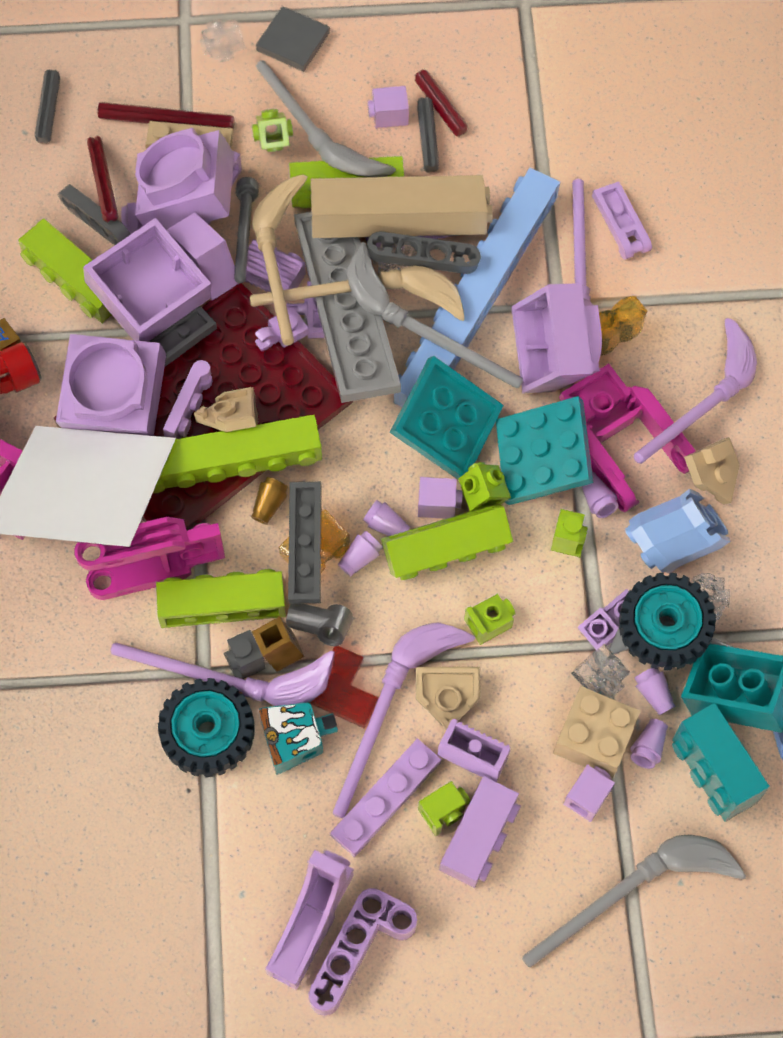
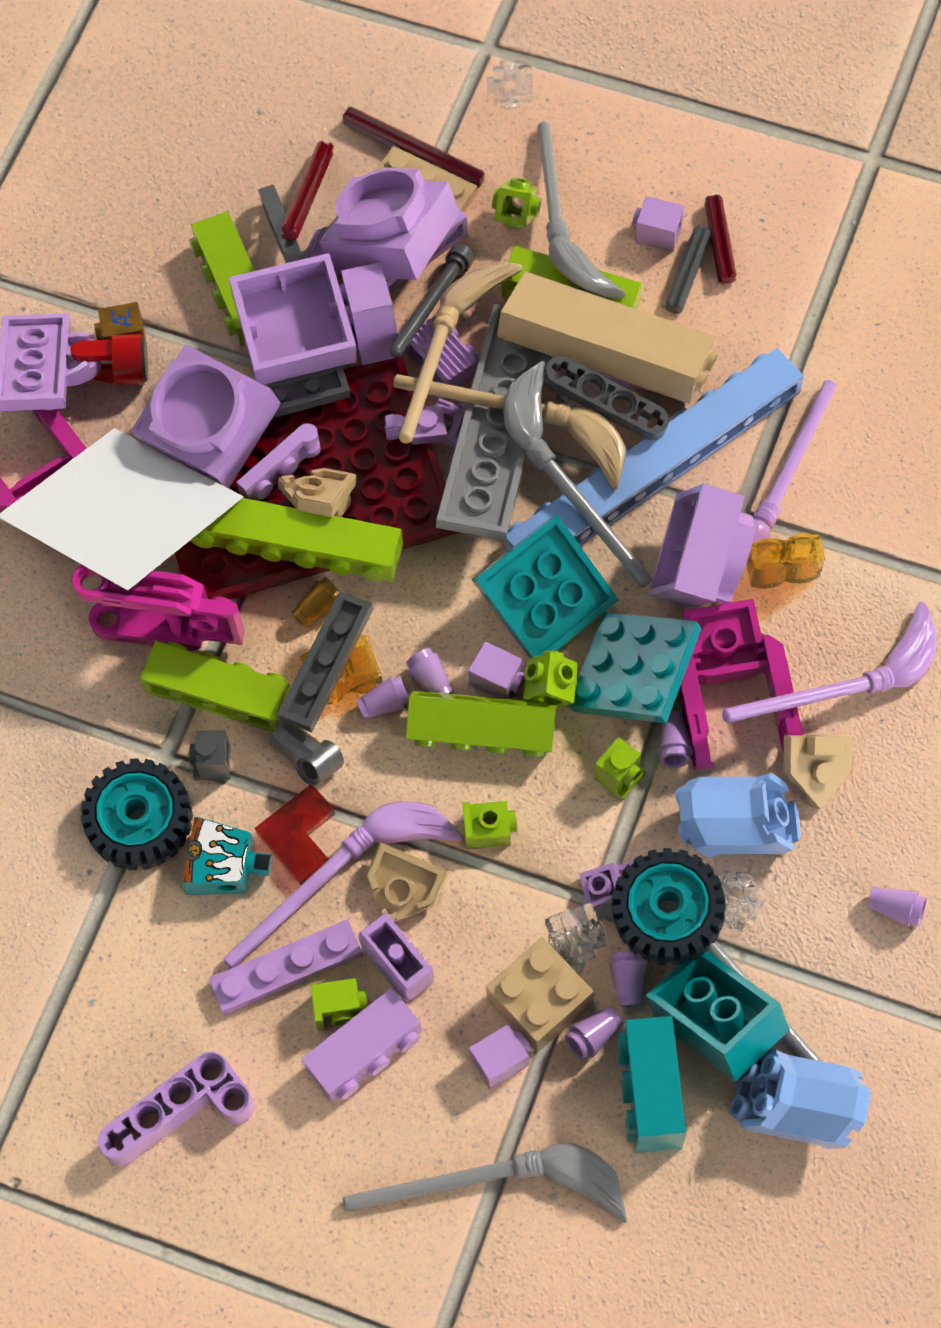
camera: 30 degrees right, 0 degrees up
(47, 106) = (295, 91): dark grey axle -> none
(278, 644) = (249, 757): pearl gold brick -> none
(287, 689) = (236, 809): lavender piece -> none
(292, 38) = (592, 109): dark grey tile -> none
(311, 918) = (142, 1055): lavender arch -> none
(621, 220) = (857, 444): lavender plate -> none

